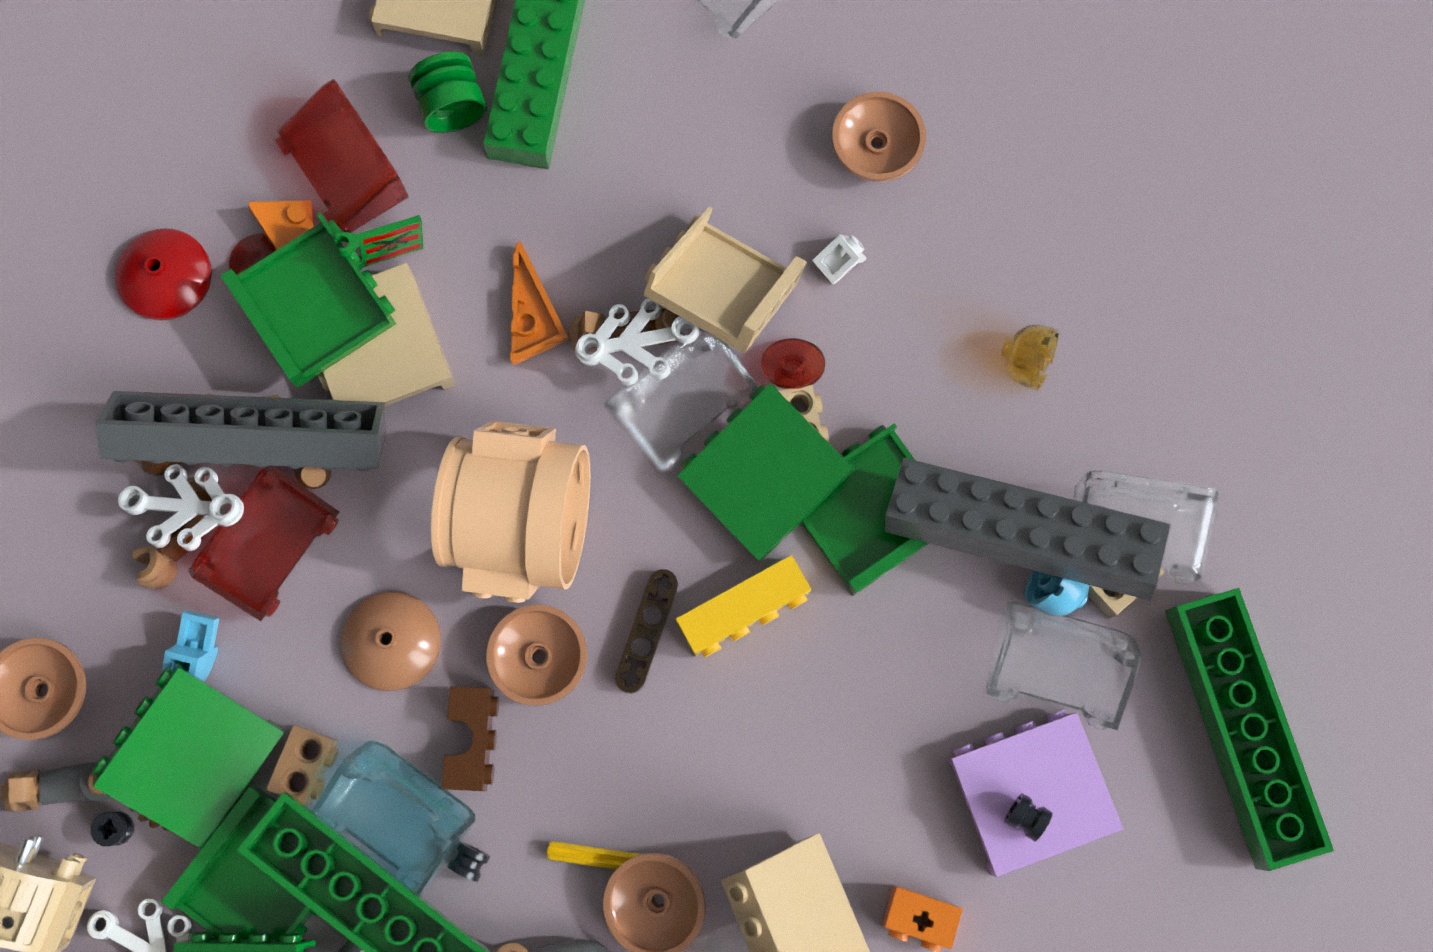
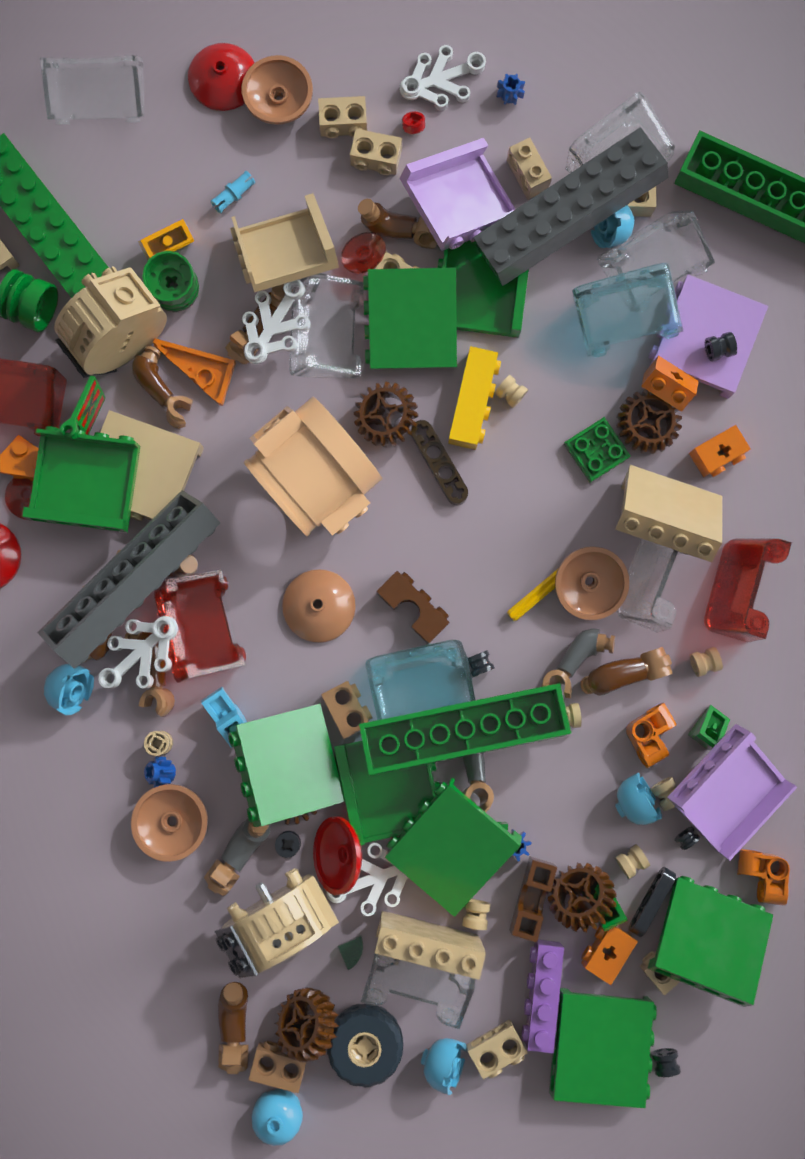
camera: 50 degrees left, 5 degrees up
(80, 633) = (159, 772): none -> blue gear
(84, 473) = (67, 688): none -> medium azure cylinder
(117, 609) = (163, 742): none -> tan wheel
(135, 892) = (337, 855): none -> red dish
(475, 268) = (146, 374): none -> piece
(488, 185) = (108, 322): none -> tan piece
(519, 638) = (405, 513): nougat dish -> none
(576, 196) = (168, 268): none -> green wheel
(626, 167) = (167, 239): none -> light orange brick
(656, 510) = (379, 396): none -> reddish brown gear
(738, 185) = (233, 192): none -> medium azure pin
(786, 639) = (511, 391): none -> tan wheel
(807, 783) = (597, 449): none -> green tile
(832, 83) = (219, 88): none -> red dish
(840, 257) = (326, 175): white bracket -> none
(846, 361) = (395, 225): none -> piece
(878, 827) = (631, 431): none -> reddish brown gear
(917, 282) = (377, 145): none -> tan brick
(921, 216) = (342, 109): none -> tan brick
(938, 403) = (456, 193): none -> lavender panel
(941, 798) = (670, 383): none -> orange brick
(975, 294) = (413, 122): none -> red tile
(978, 683) = (627, 308): none -> clear light blue windscreen
(1030, 354) = (474, 122): clear yellow cylinder -> none
(1035, 449) = (528, 168): none -> tan brick
(1045, 278) = (439, 78): none -> white plant
(1110, 355) = (510, 89): none -> blue gear

